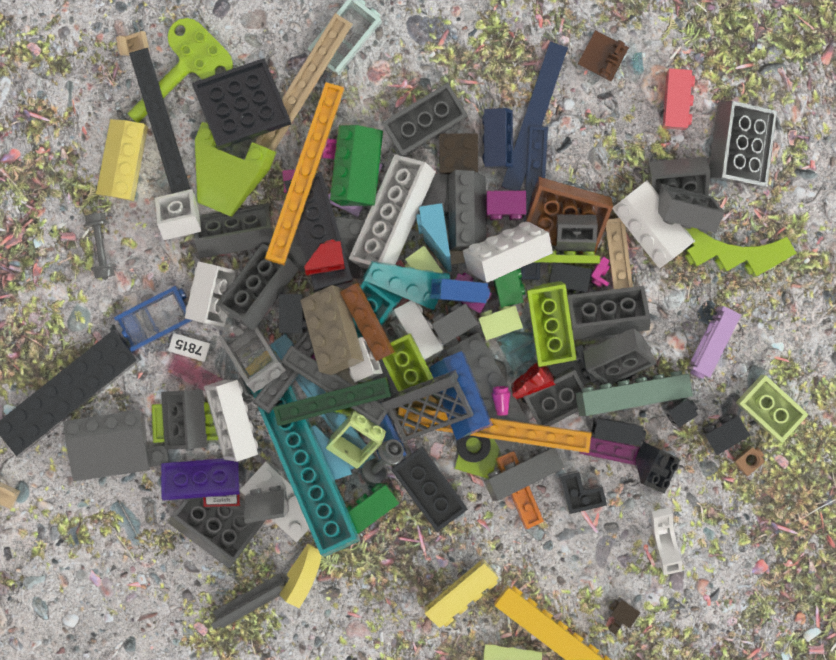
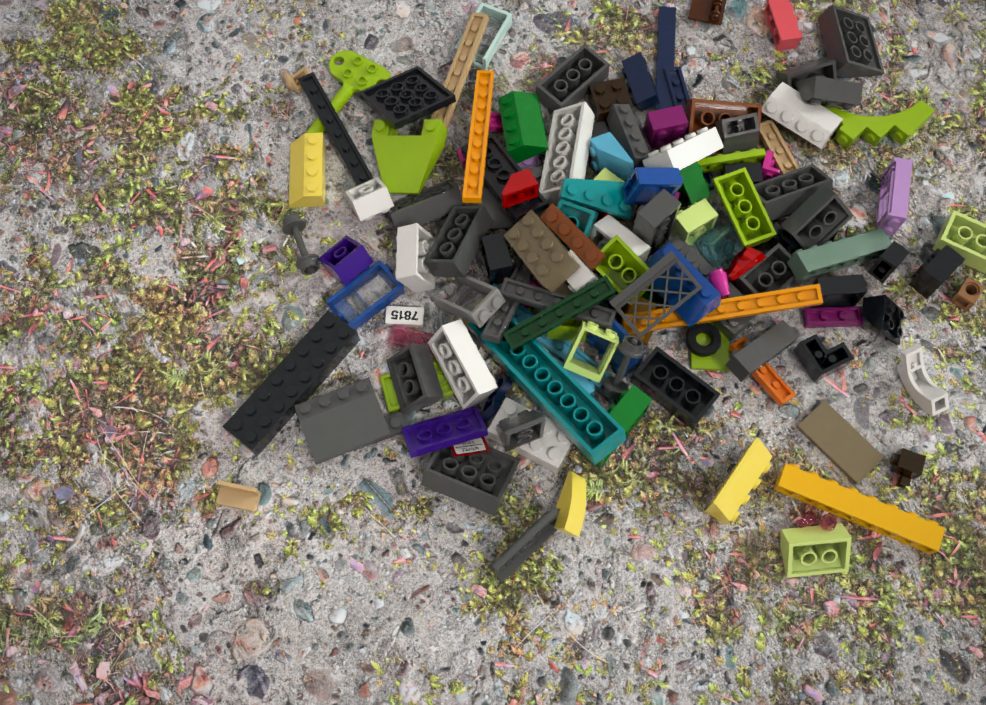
camera: 10 degrees left, 20 degrees down
(140, 278) = (346, 260): none -> dark purple brick
(252, 463) = (496, 397): none -> dark blue tile
(526, 650) = (827, 521): none -> clear pink piece
(570, 574) = (840, 442): none -> dark tan tile

